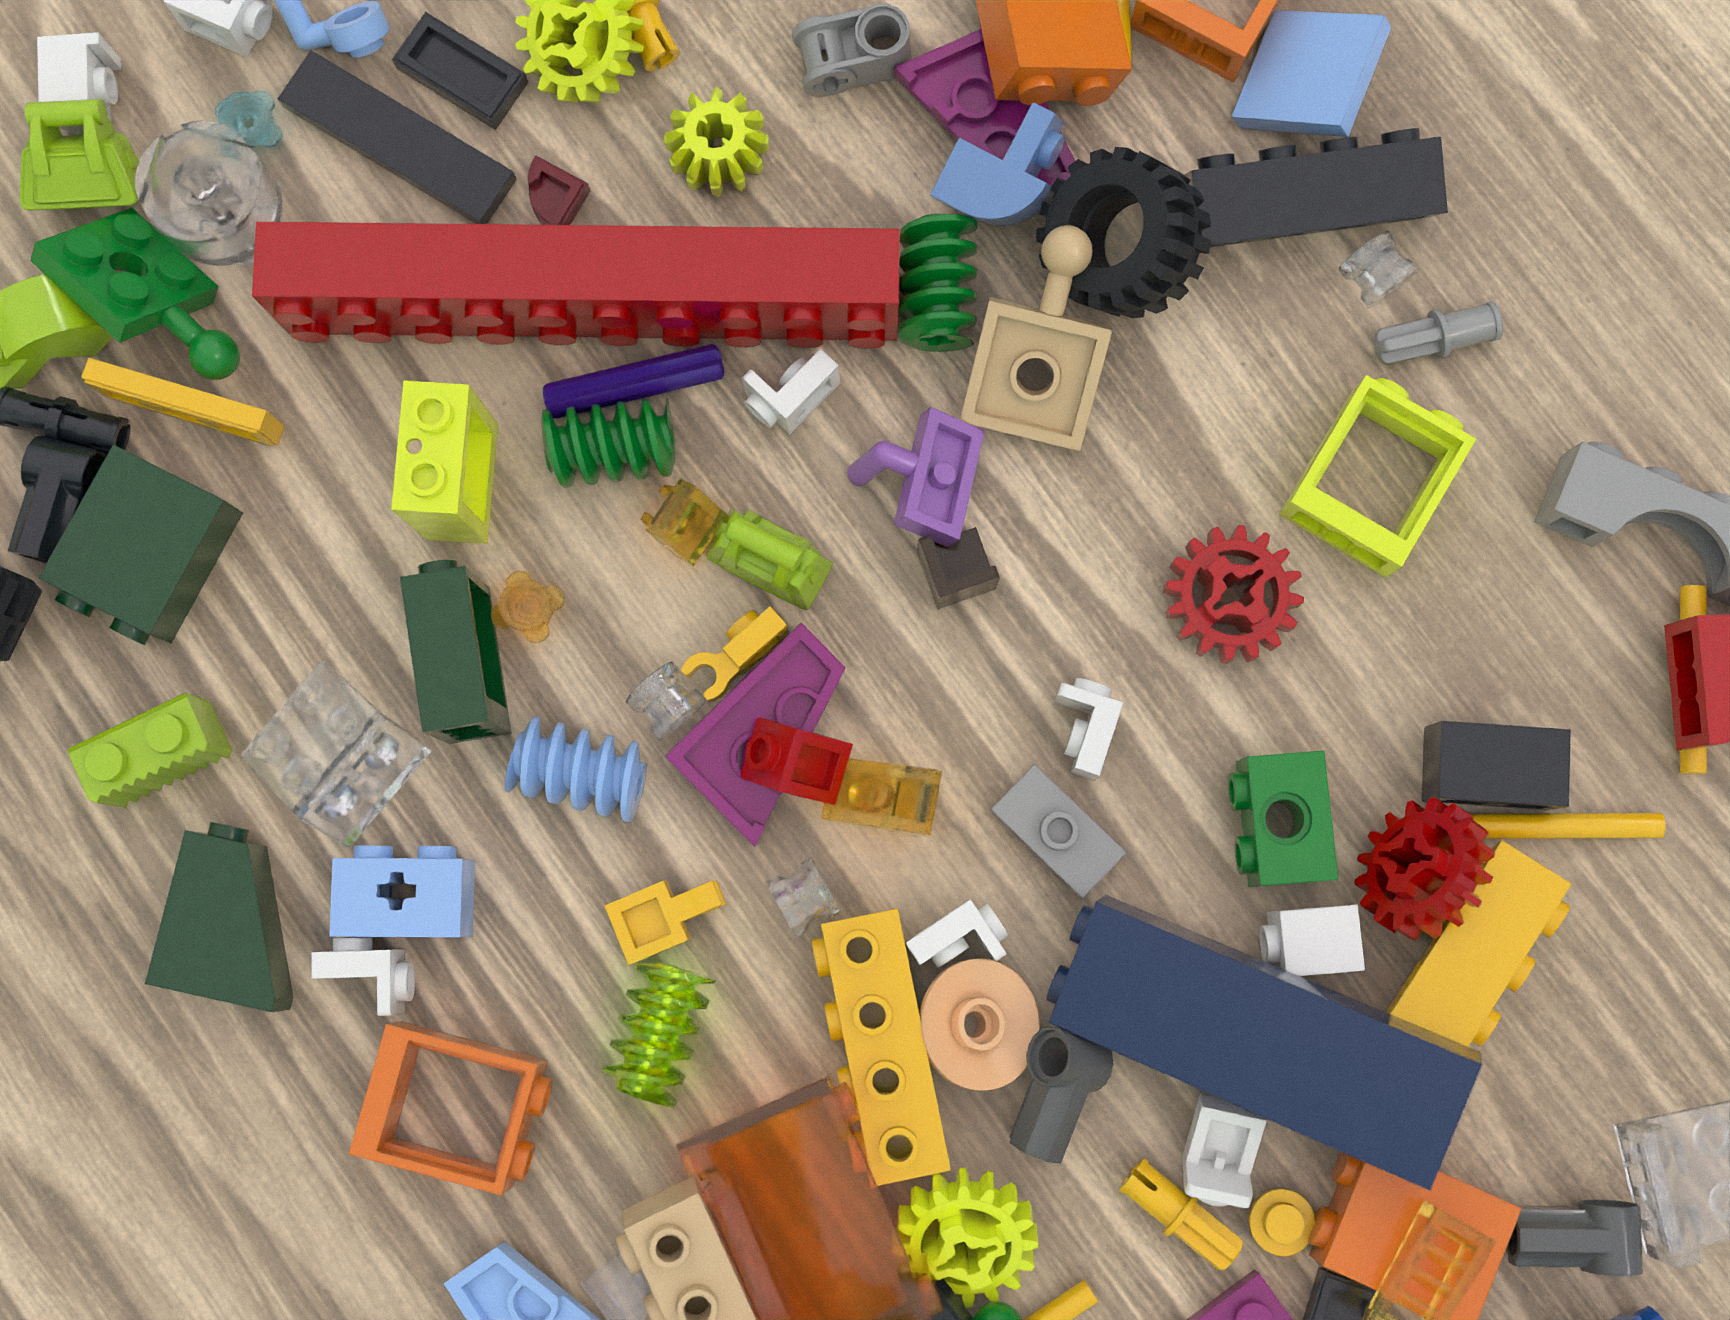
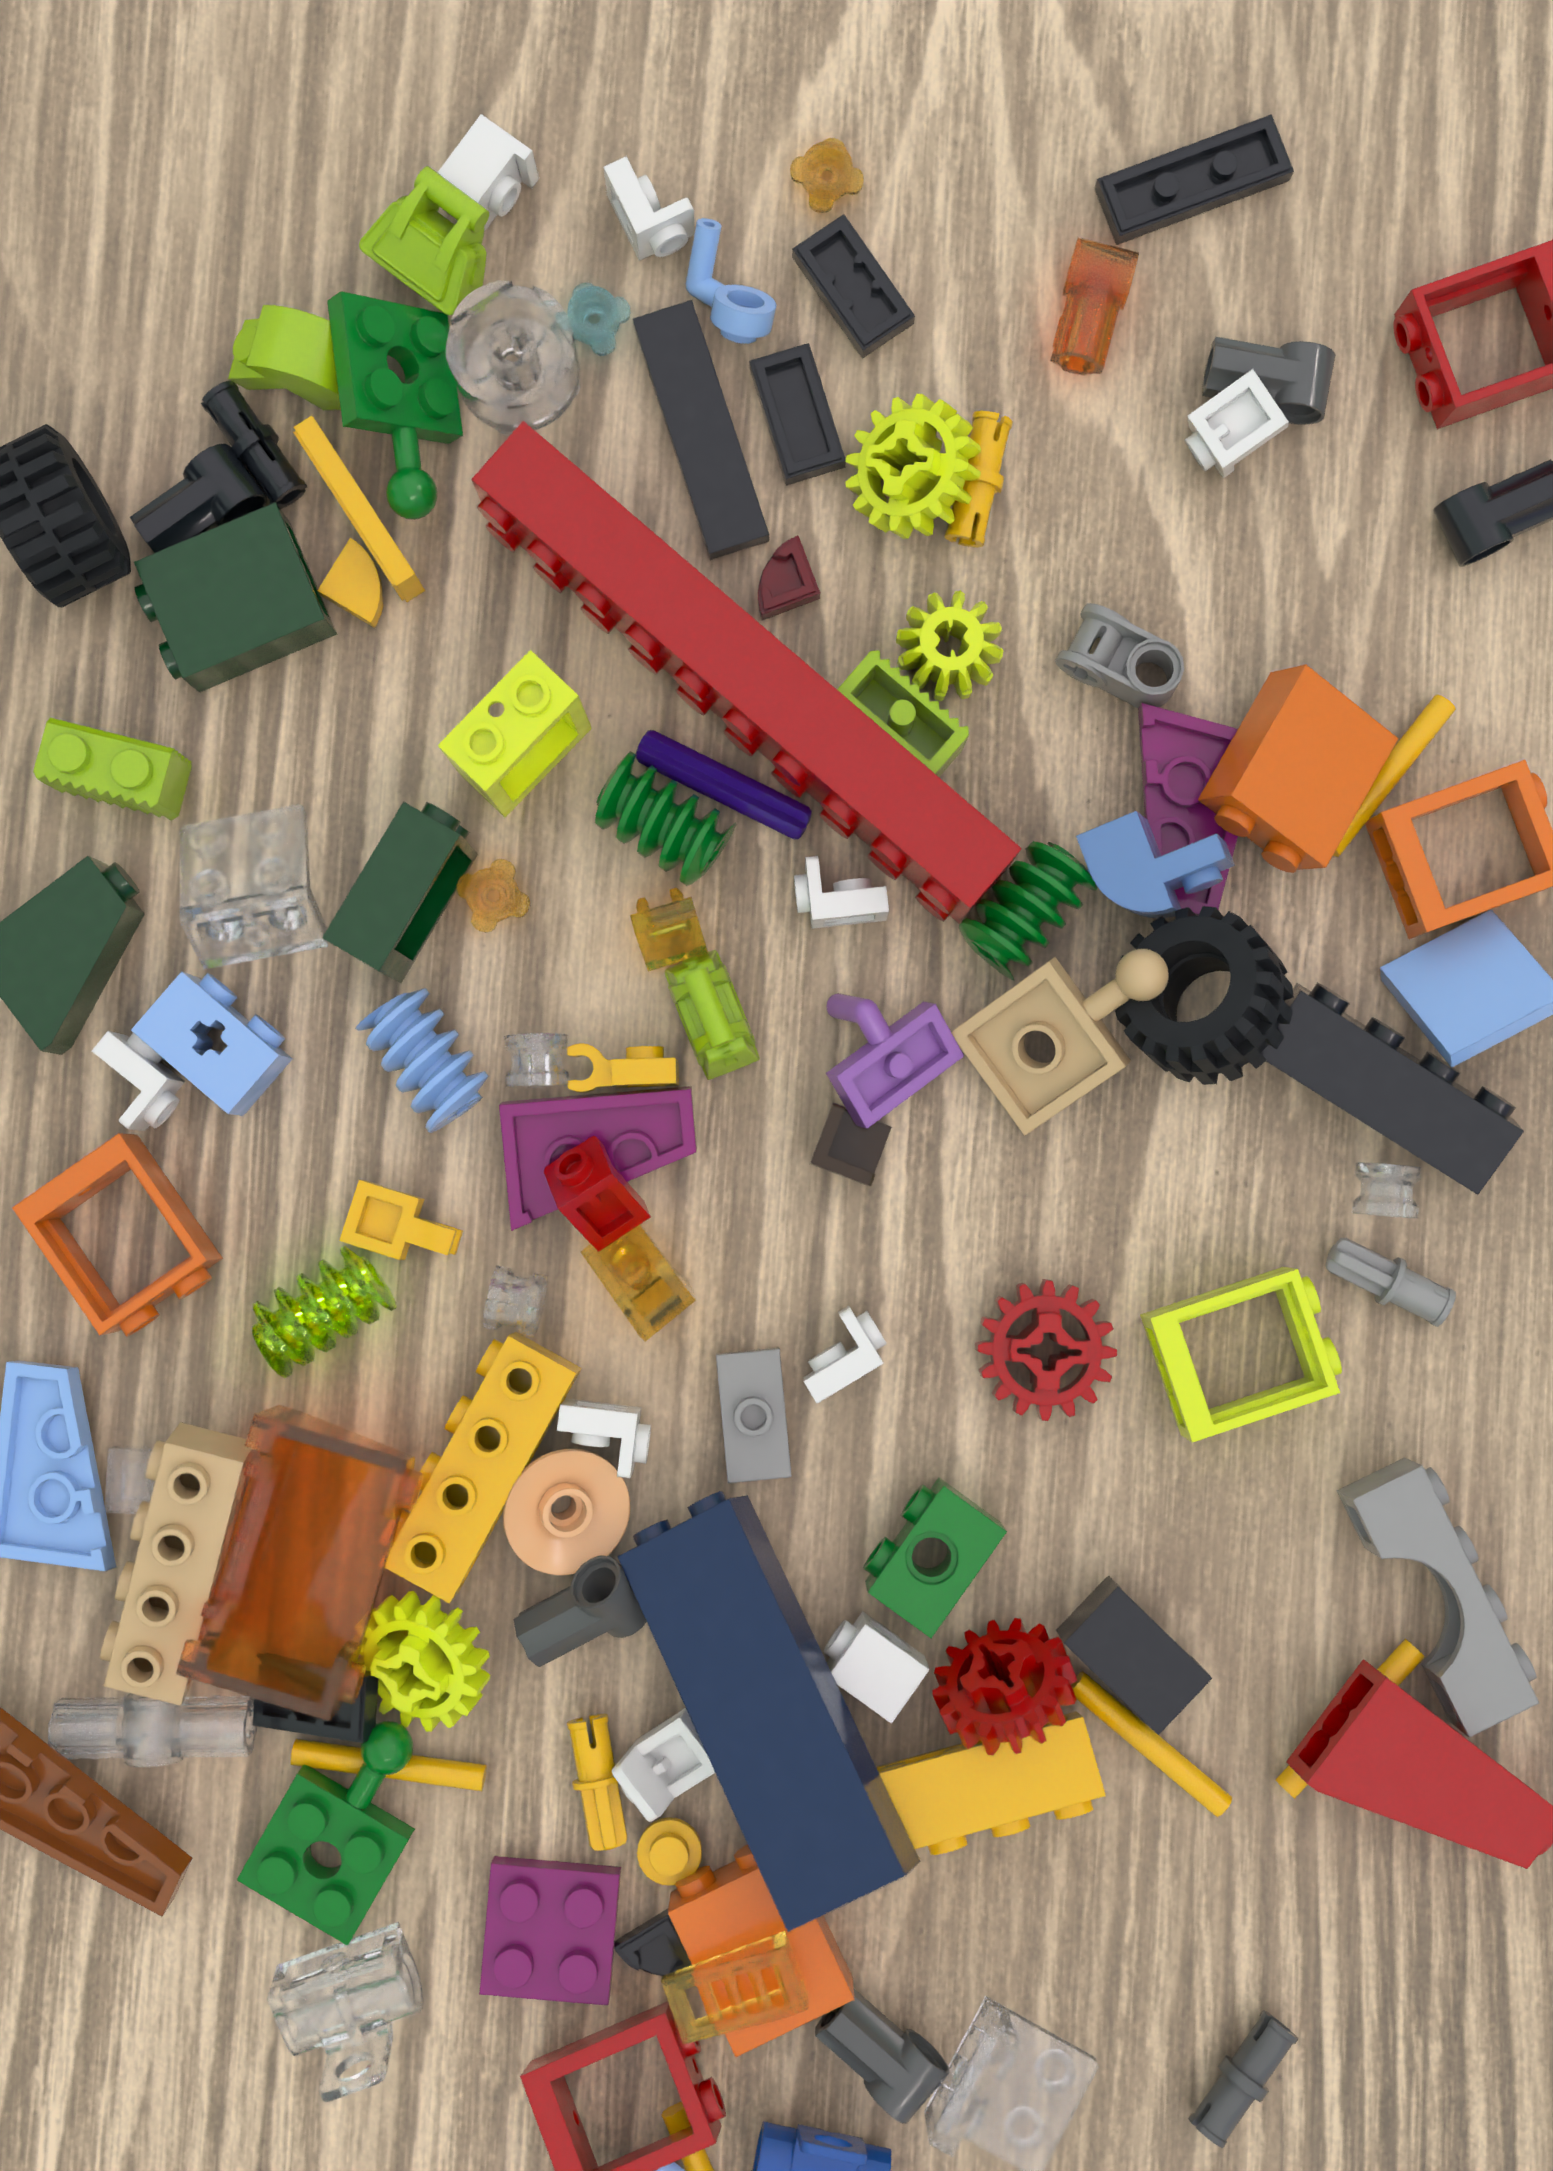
camera: 40 degrees right, 5 degrees up
(226, 462) = (355, 584): none -> yellow tile
(725, 204) = (905, 712): none -> lime brick

